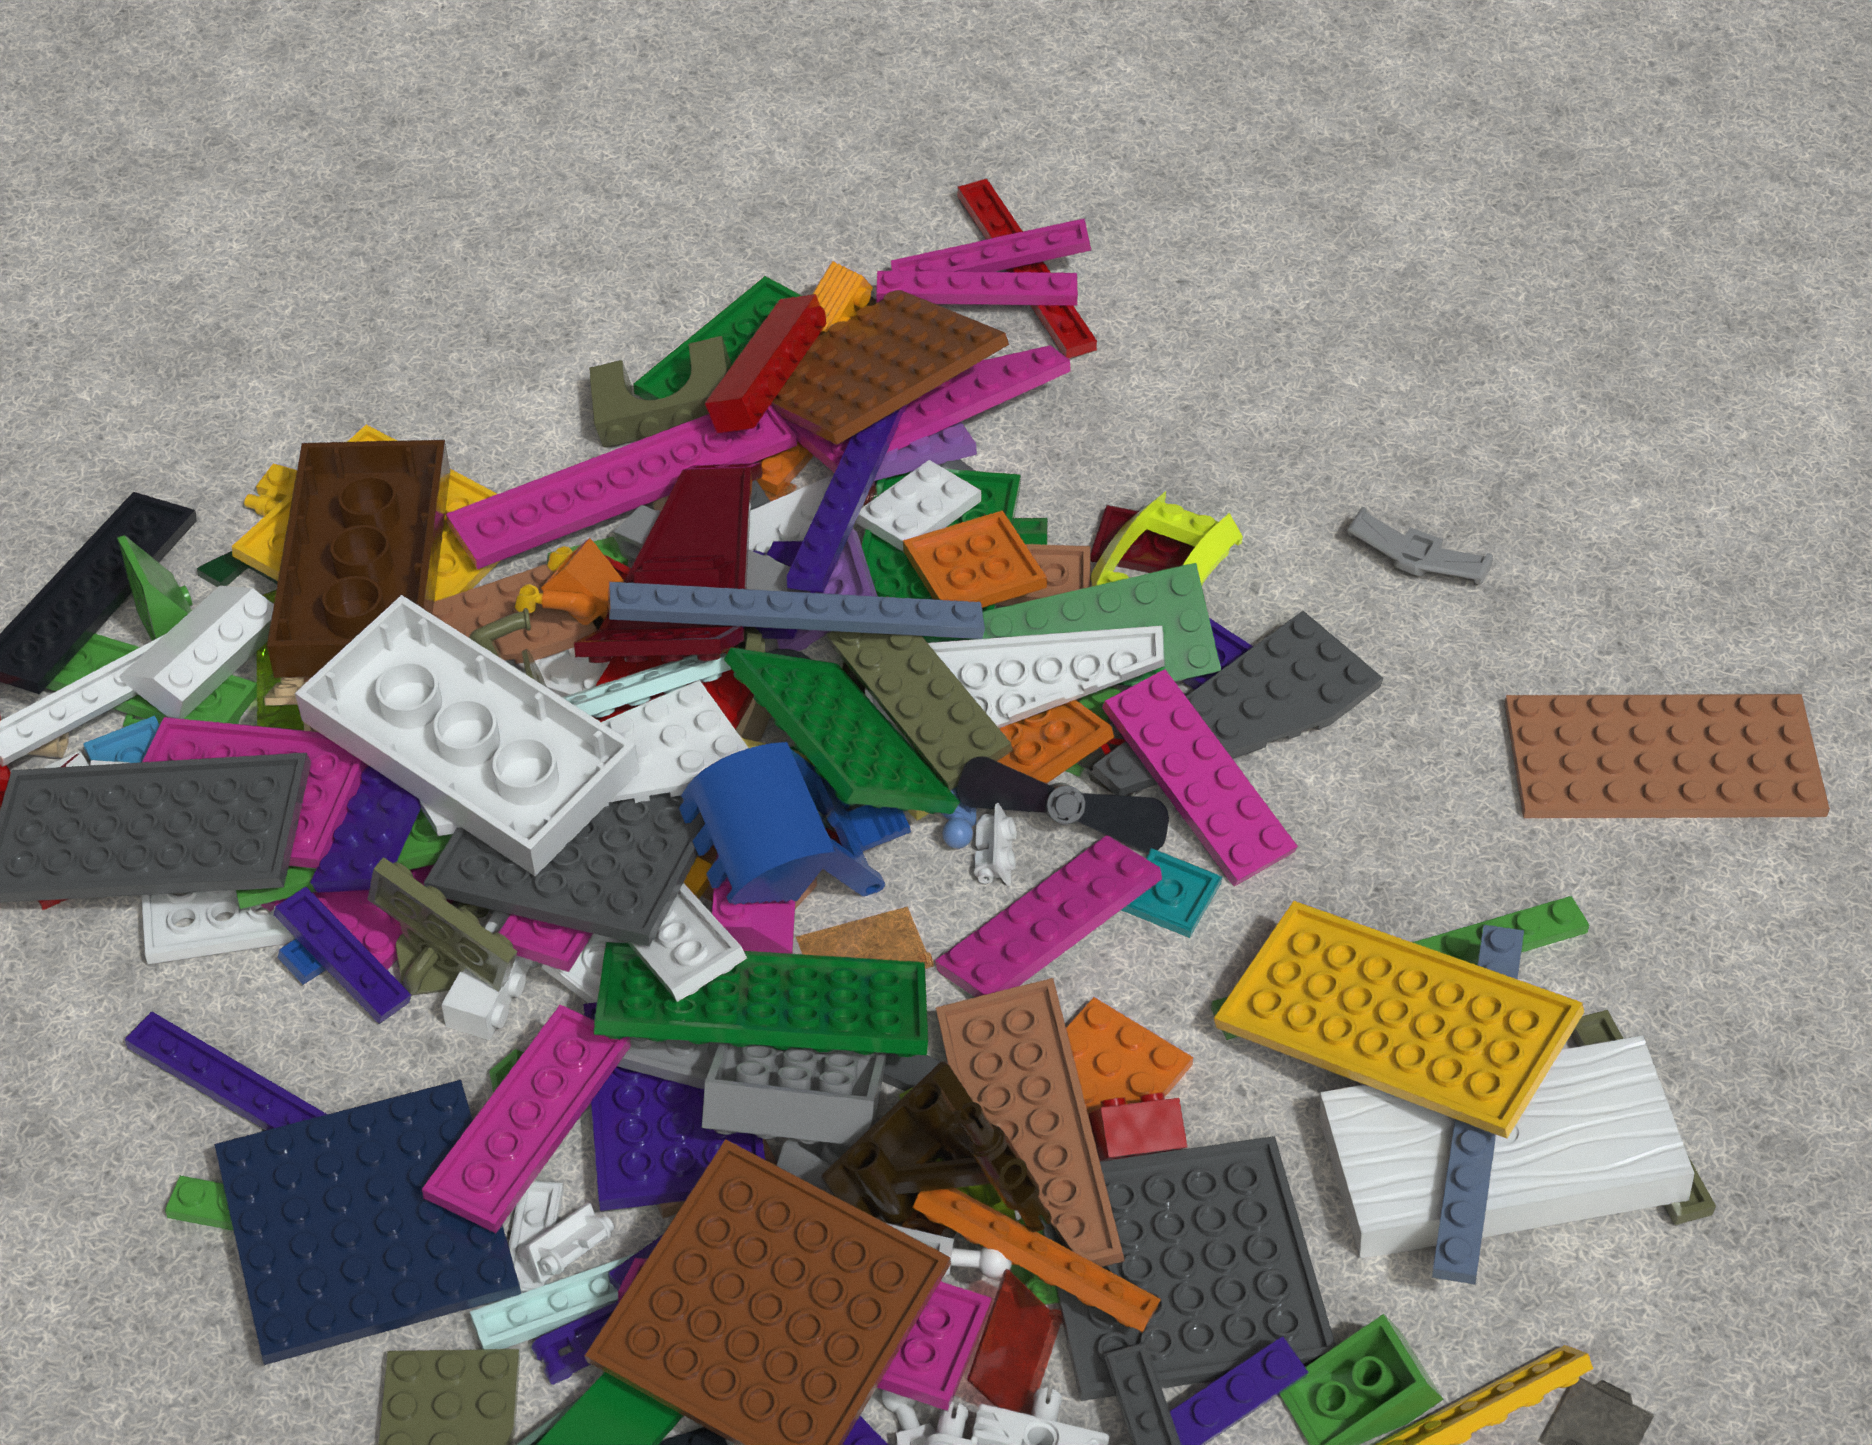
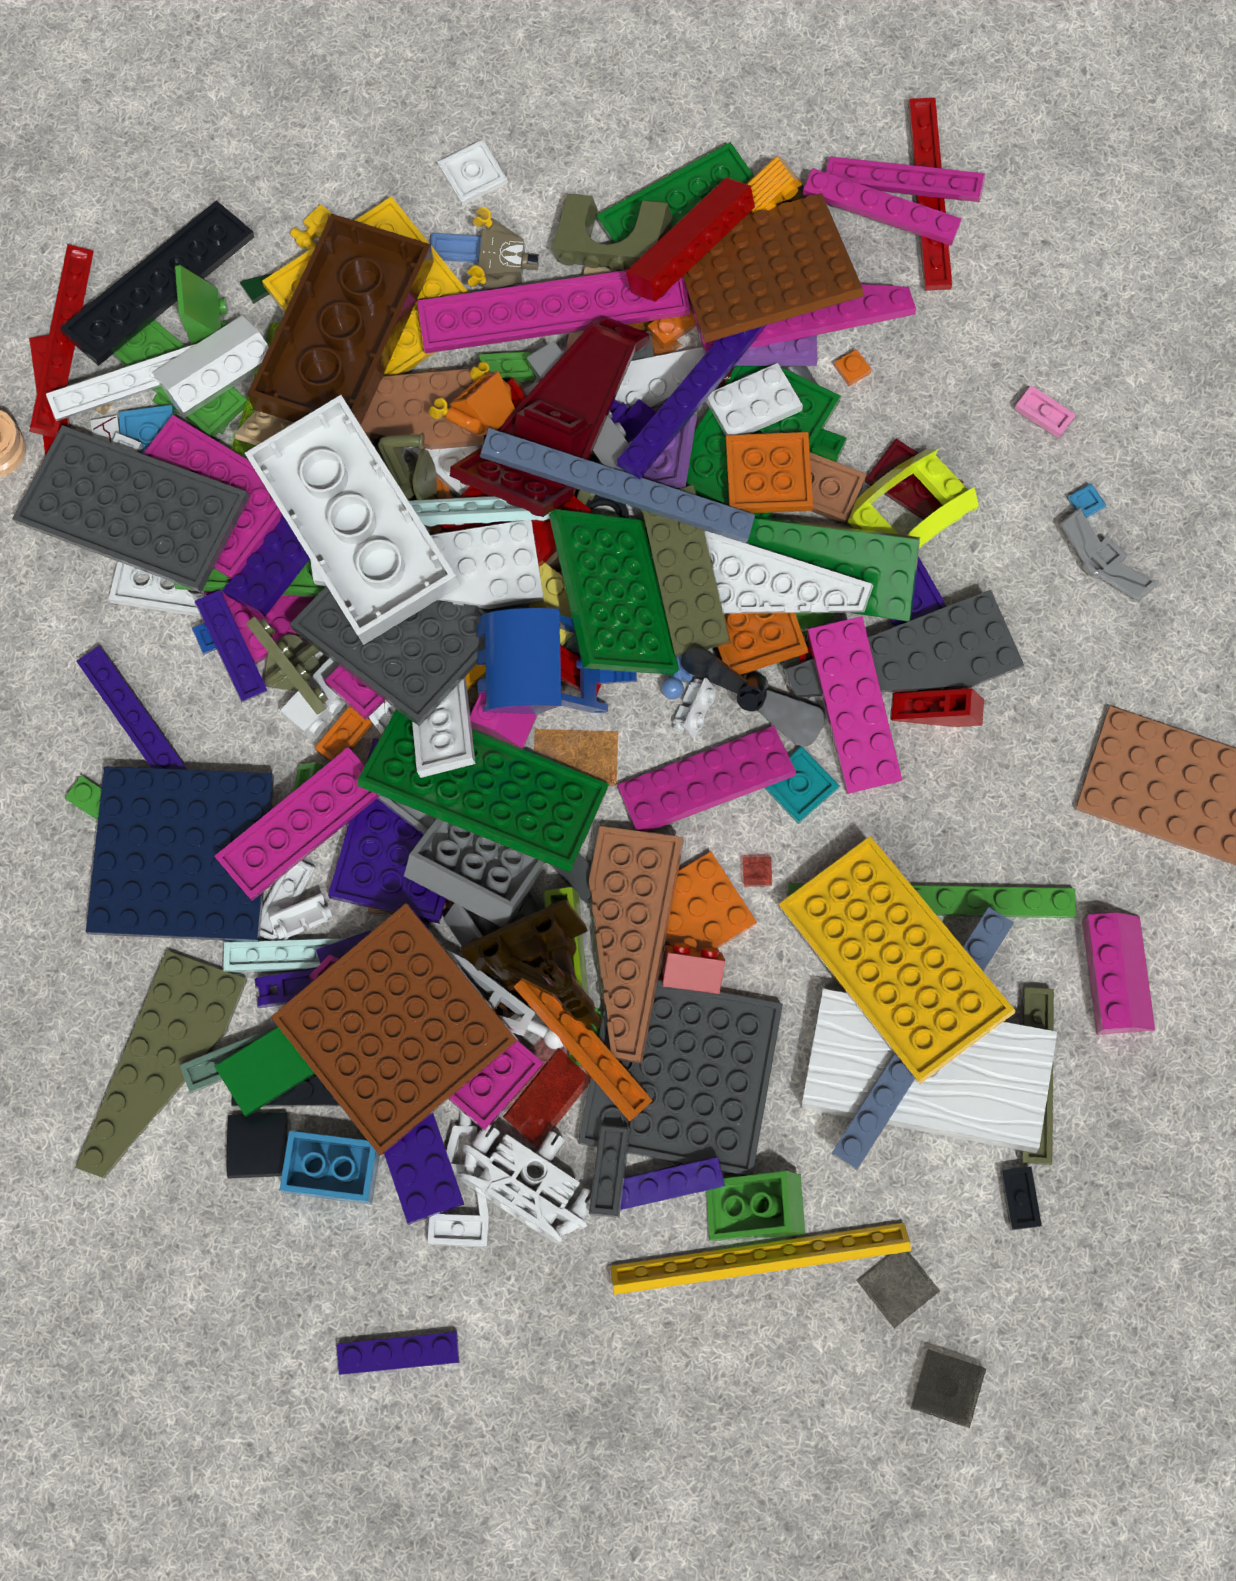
camera: 25 degrees right, 25 degrees up
(456, 386) = (472, 172): none -> white tile
(478, 461) = (457, 247): none -> medium blue tile
(528, 448) = (500, 256): none -> dark tan torso
(537, 1008) = (343, 734): none -> orange plate
(1018, 453) = (852, 367): none -> orange plate
(1164, 1004) = (757, 871): none -> clear red tile
(1269, 432) = (1045, 411): none -> bright pink plate
(1304, 755) = (939, 708): none -> red slope
(1362, 497) = (1088, 500): none -> dark azure tile
(1672, 971) = (1118, 973): none -> dark pink slope
(1698, 1262) = (1021, 1198): none -> black plate

